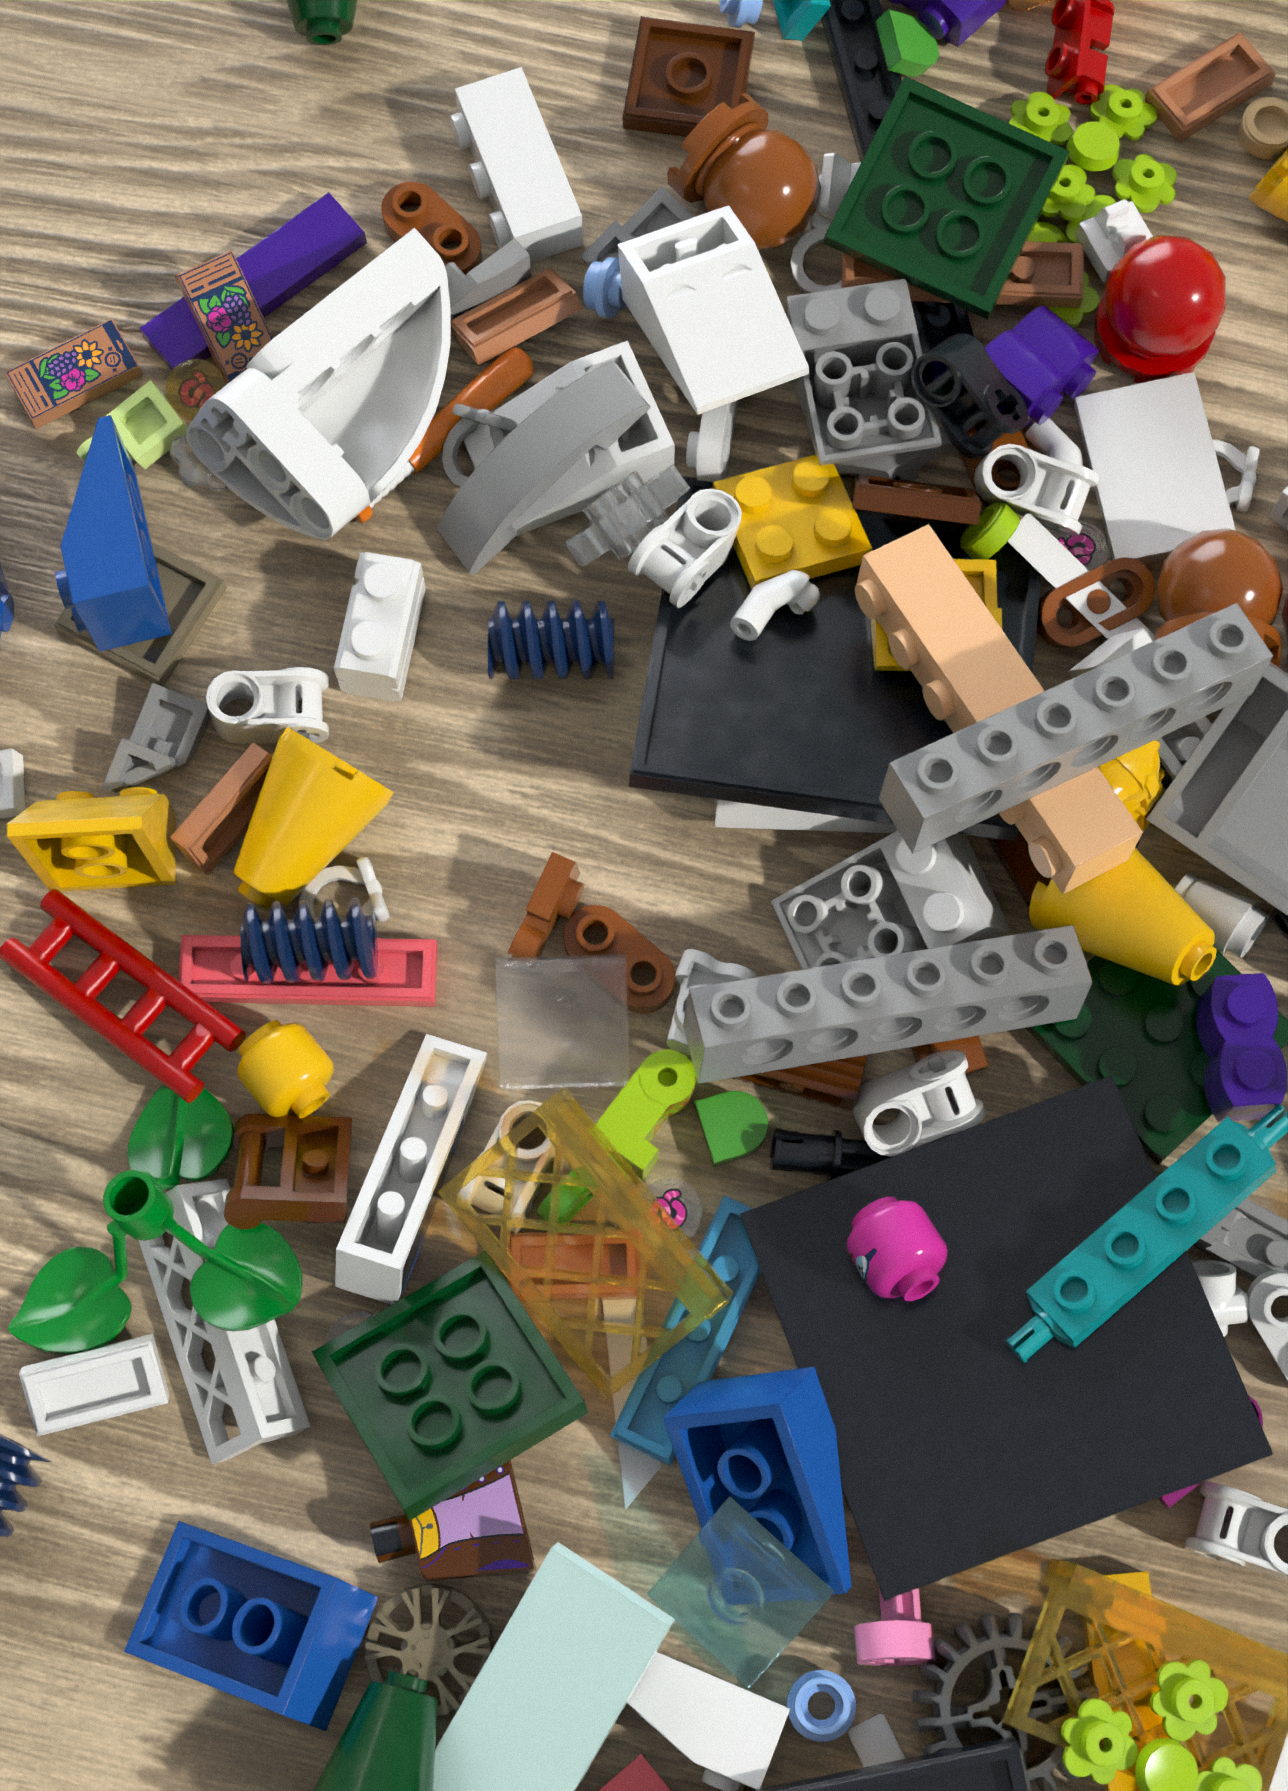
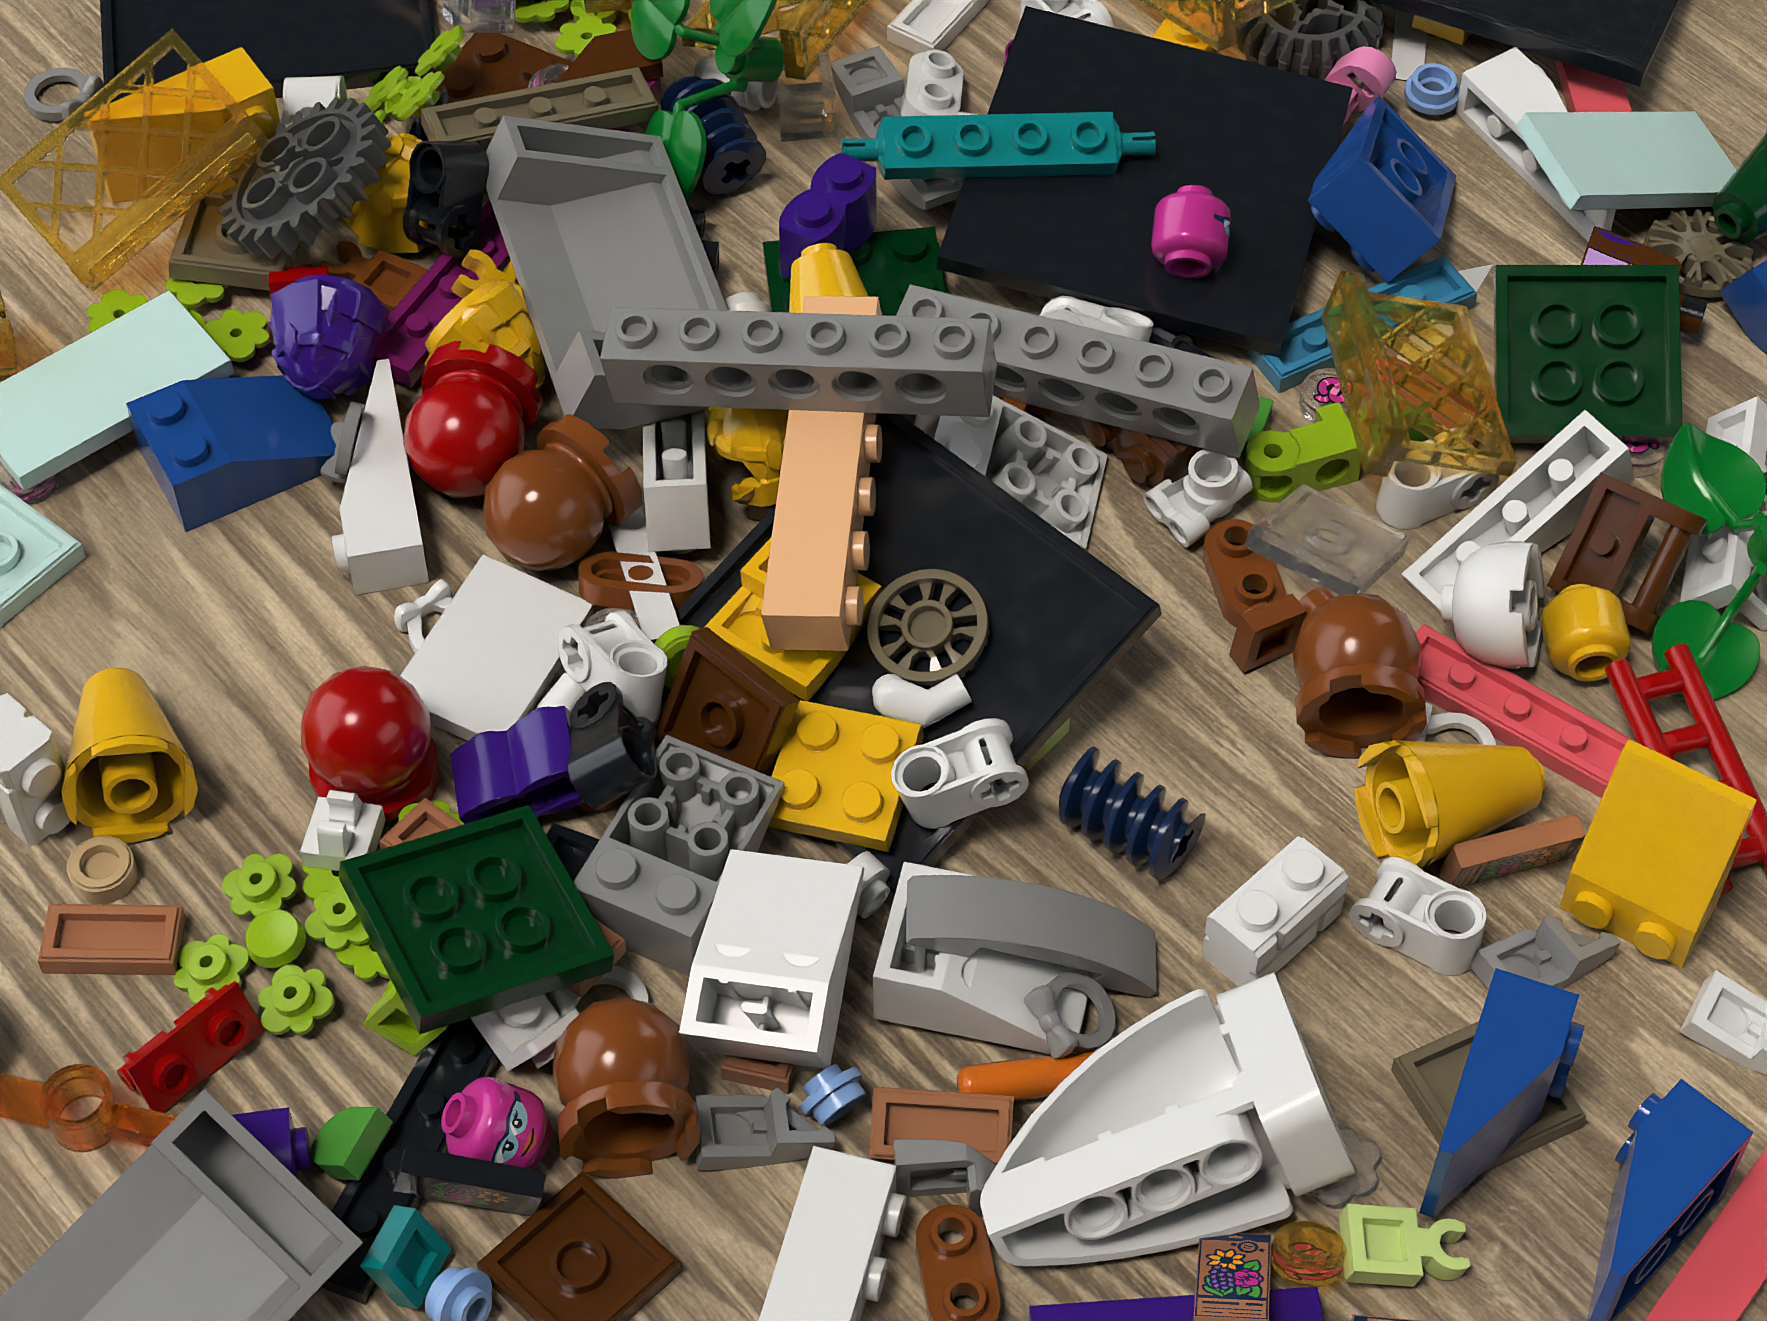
camera: 145 degrees left, 20 degrees down
(308, 941) = (1510, 690): dark blue piece -> none
(370, 1032) = (1498, 604): none -> white cylinder
(448, 881) = (1358, 676): none -> dark orange tile
(626, 515) = (992, 835): clear gear -> none
(740, 1592) = (1450, 152): clear light blue tile -> none
(799, 57) = (469, 1181): none -> black tile
(811, 659) = (928, 627): none -> dark tan wheel
(813, 103) = (497, 1123): none -> dark pink head

